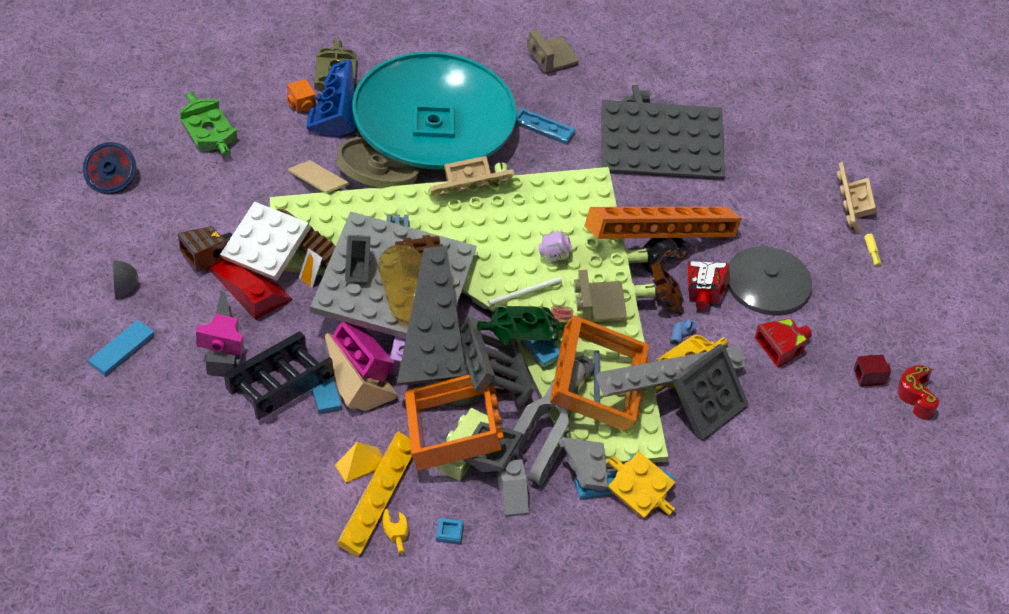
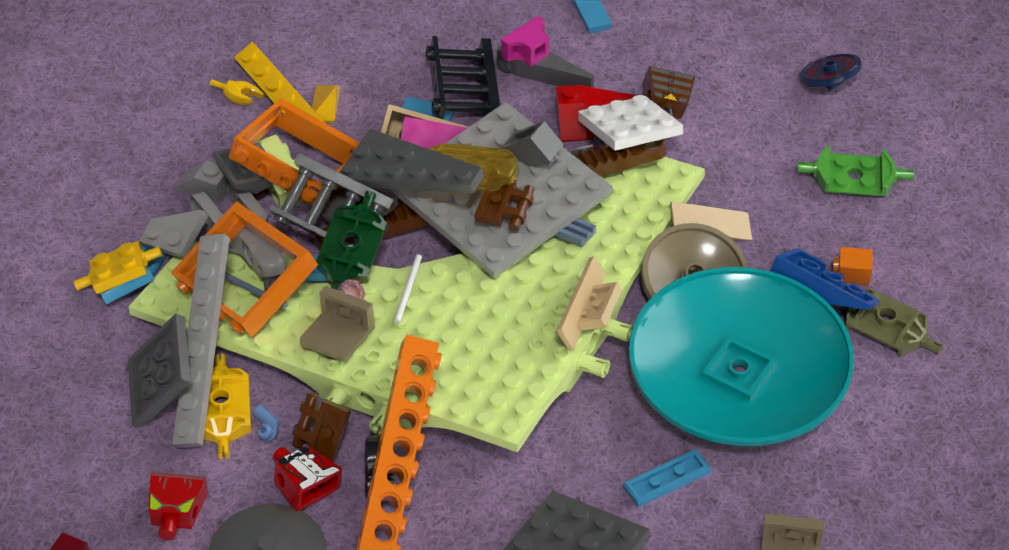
camera: 130 degrees right, 0 degrees up
(124, 279) = (665, 24): dark grey brick -> none
(449, 531) = (204, 125): dark azure tile -> none
(555, 246) = (434, 324): lavender head -> none

